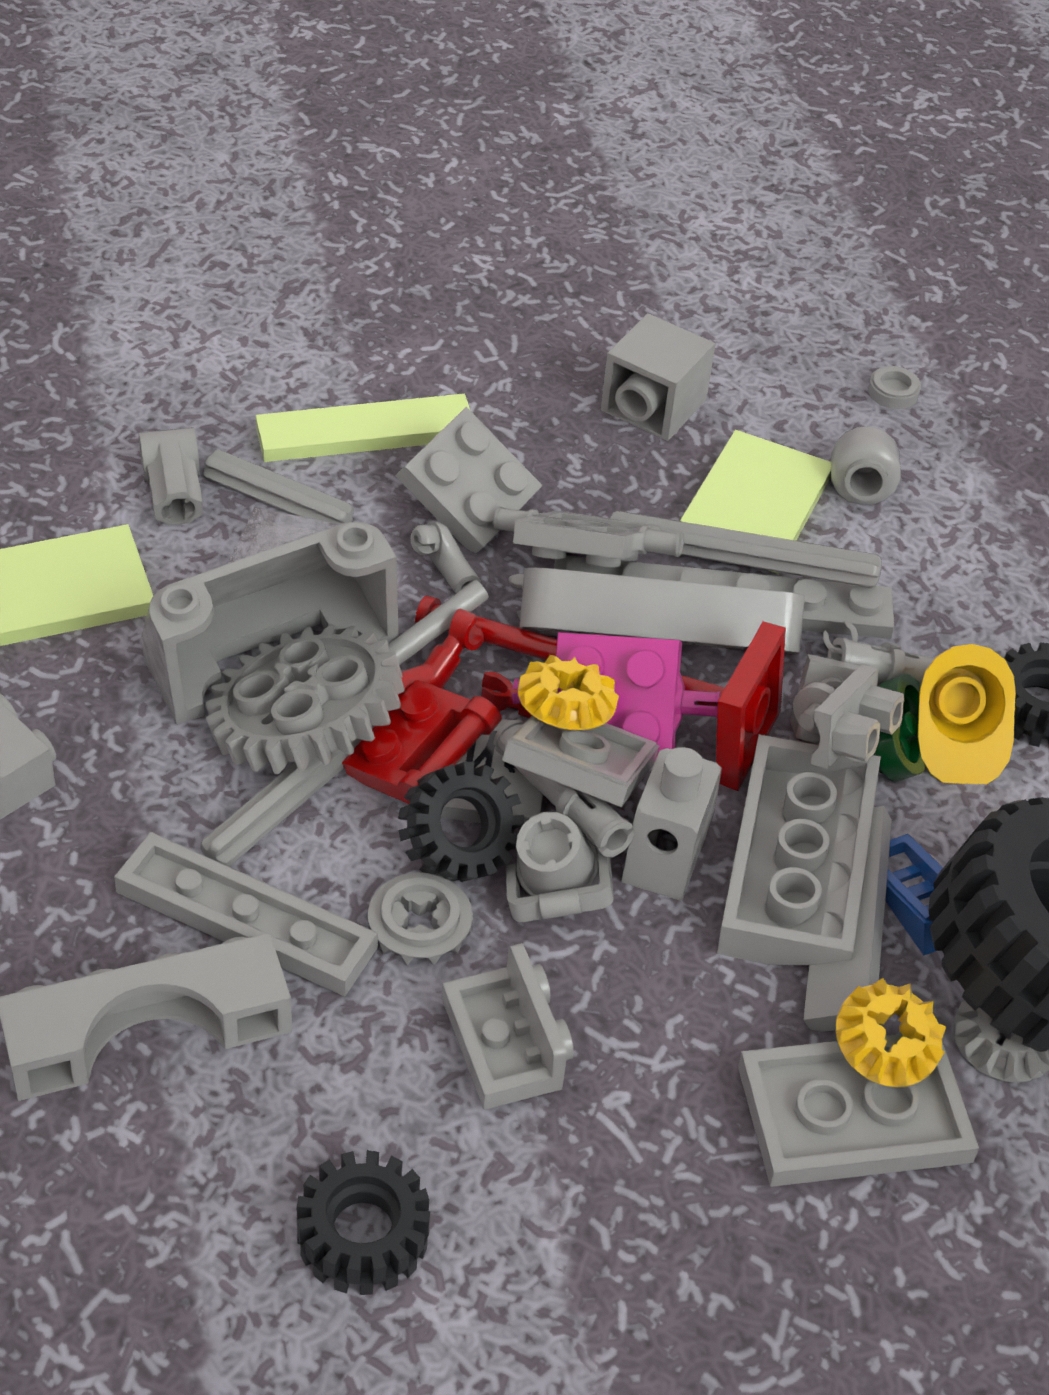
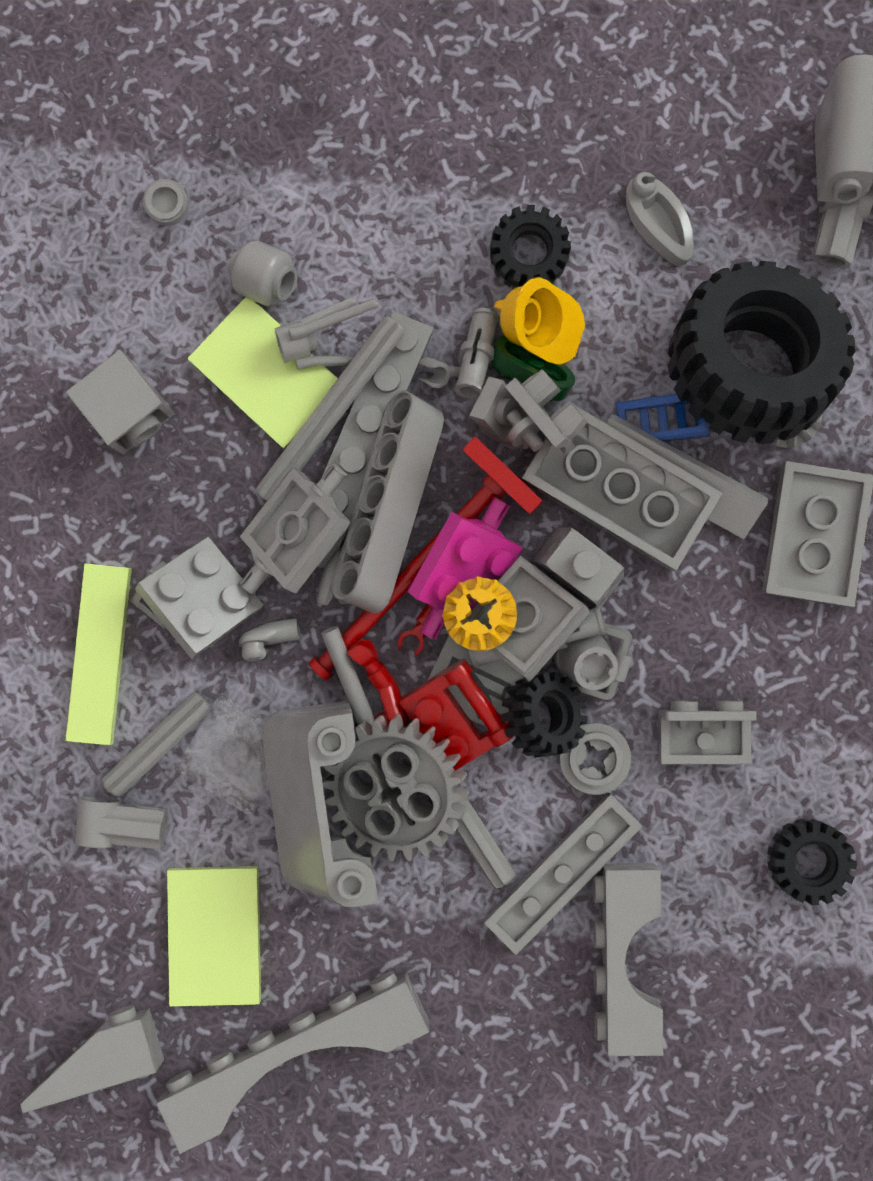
camera: 65 degrees left, 40 degrees up
(808, 498) = (299, 339): none -> light grey plant
(864, 1041) = (774, 498): yellow gear -> none

